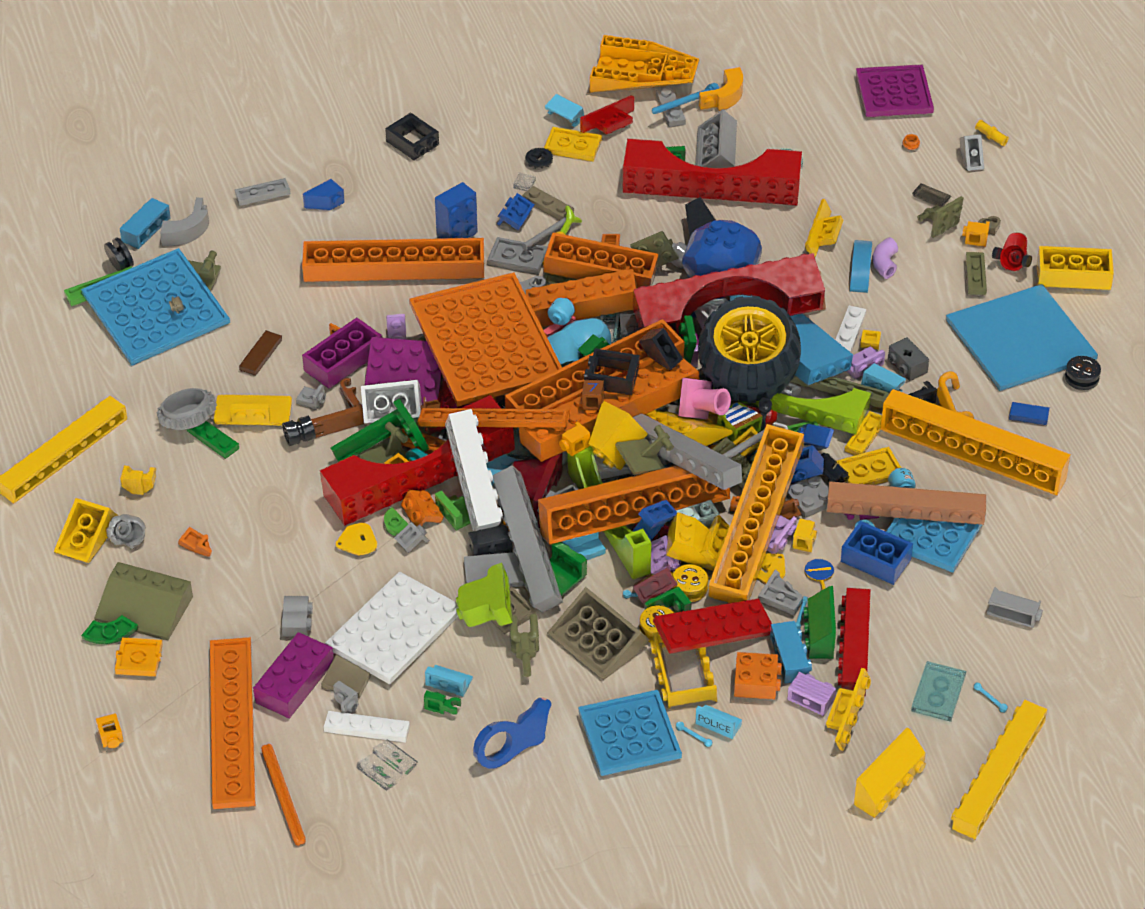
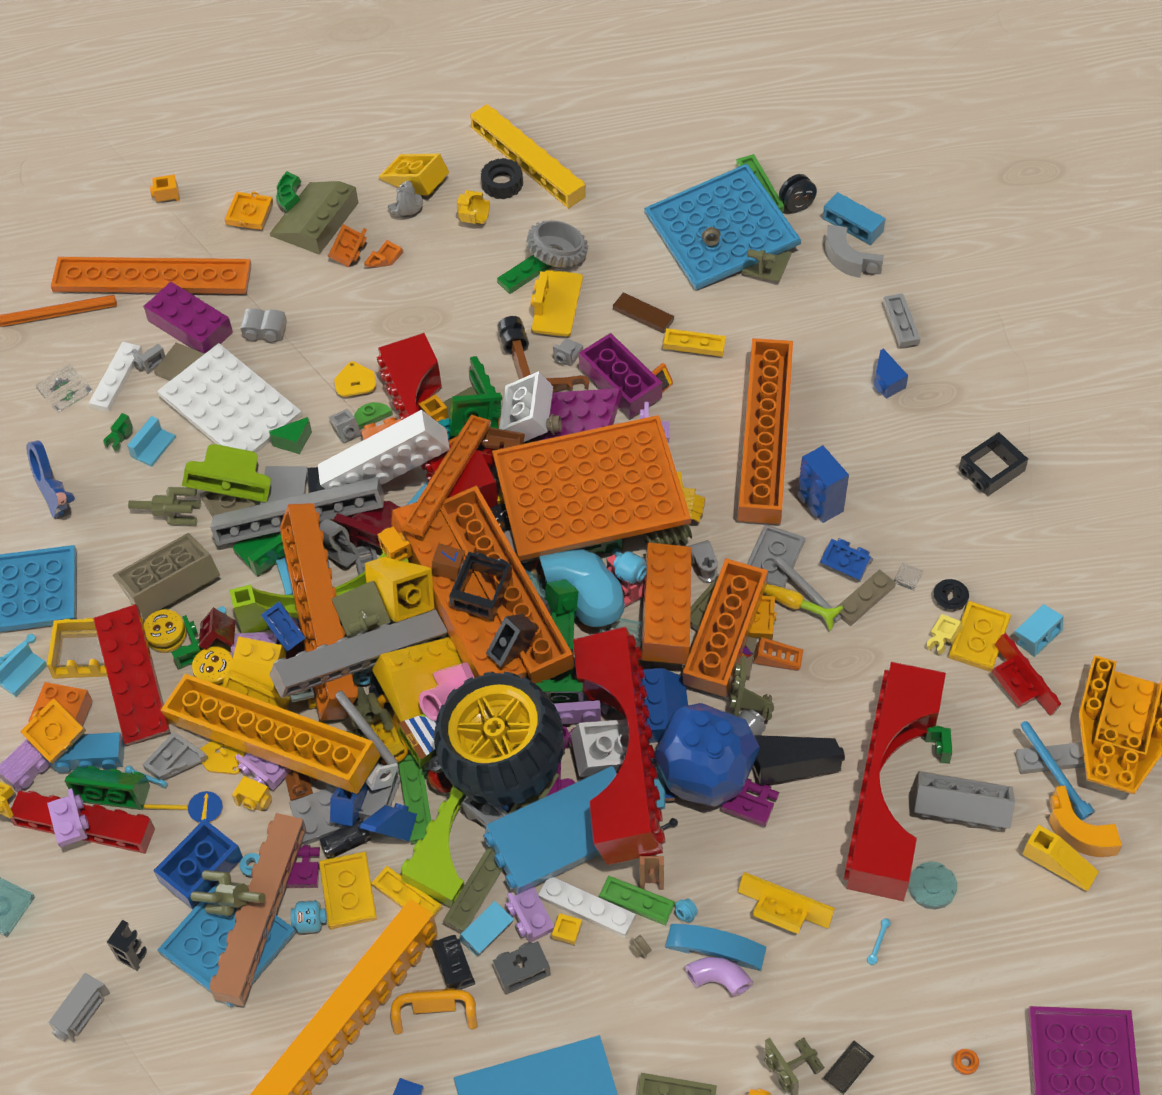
camera: 100 degrees right, 10 degrees up
(89, 454) = (498, 167): none -> black tyre
(188, 565) = (347, 244): none -> orange bracket
(296, 315) = (694, 342): none -> yellow plate
(412, 375) = (554, 424): none -> dark tan plate
(431, 569) = (291, 436): none -> green slope
(575, 158) = (944, 631): none -> light yellow plate
(751, 101) = (1059, 857): none -> yellow slope
(786, 657) = (53, 731): none -> light orange plate
(836, 308) = (637, 900): none -> bright green tile
(839, 278) = (686, 910): none -> medium azure plate
(848, 189) = (872, 959): none -> medium azure hinge
(862, 634) = (67, 819): none -> lavender bracket
(873, 300) = (640, 946): none -> dark tan plate
(907, 511) = (227, 894): none -> olive plant
(958, 579) = (122, 945): none -> black hinge

